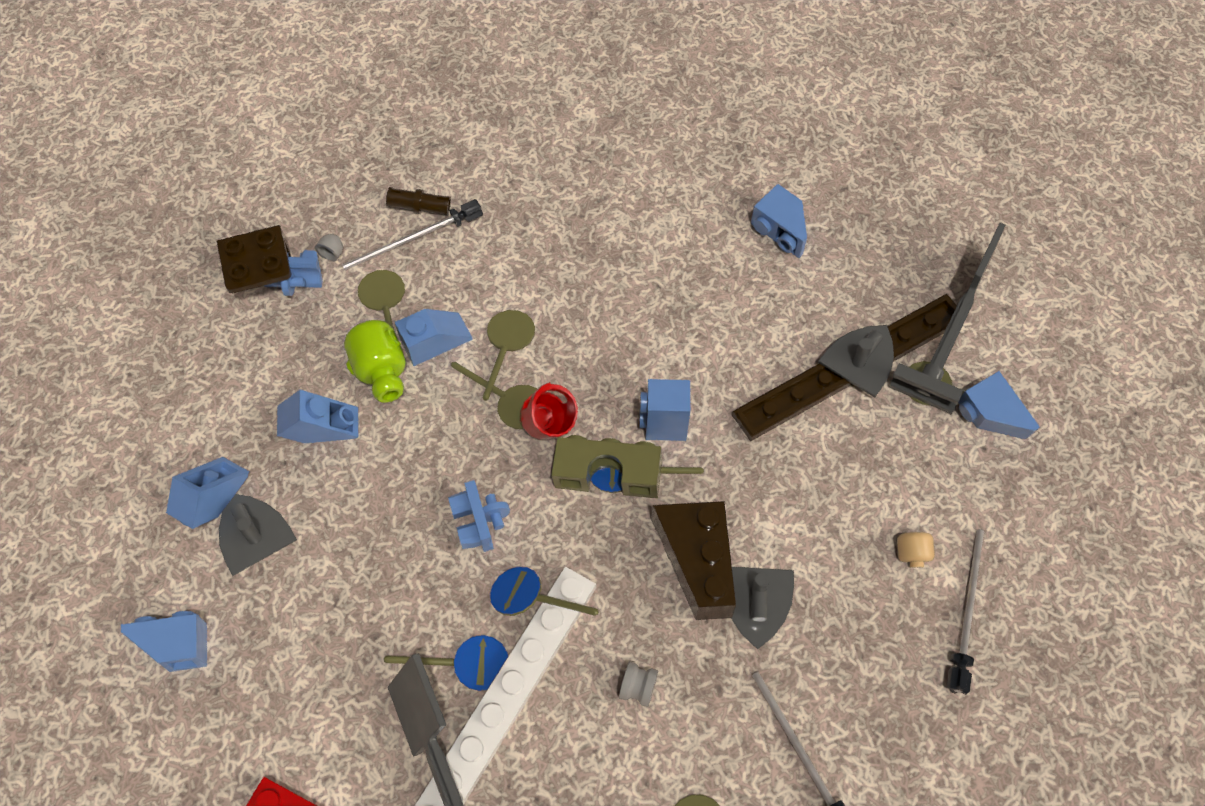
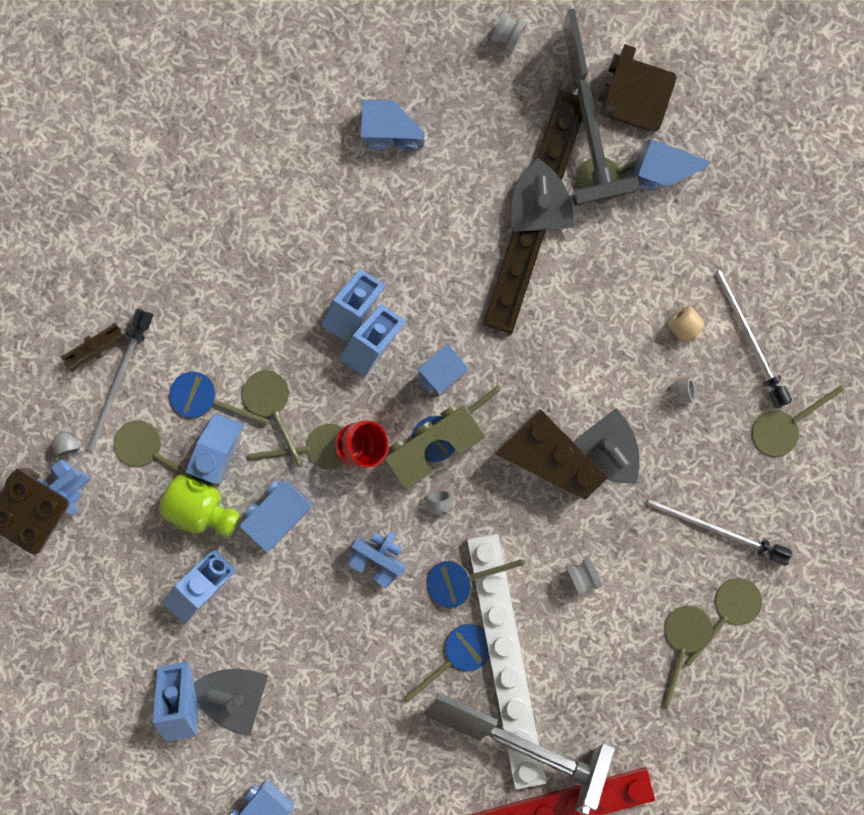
camera: 45 degrees left, 25 degrees up
(430, 417) = (276, 514): none -> medium blue brick
(458, 290) = (195, 394): none -> blue piece
(570, 516) = (439, 501): none -> light grey hinge
(629, 351) = (372, 340): none -> medium blue slope
(638, 315) = (352, 305): none -> medium blue slope
(869, 602) = (685, 391): none -> light grey hinge
(934, 716) = (778, 433): none -> olive piece
(936, 225) = (508, 31): none -> light grey wheel
(1011, 337) = (636, 91): none -> dark brown bracket

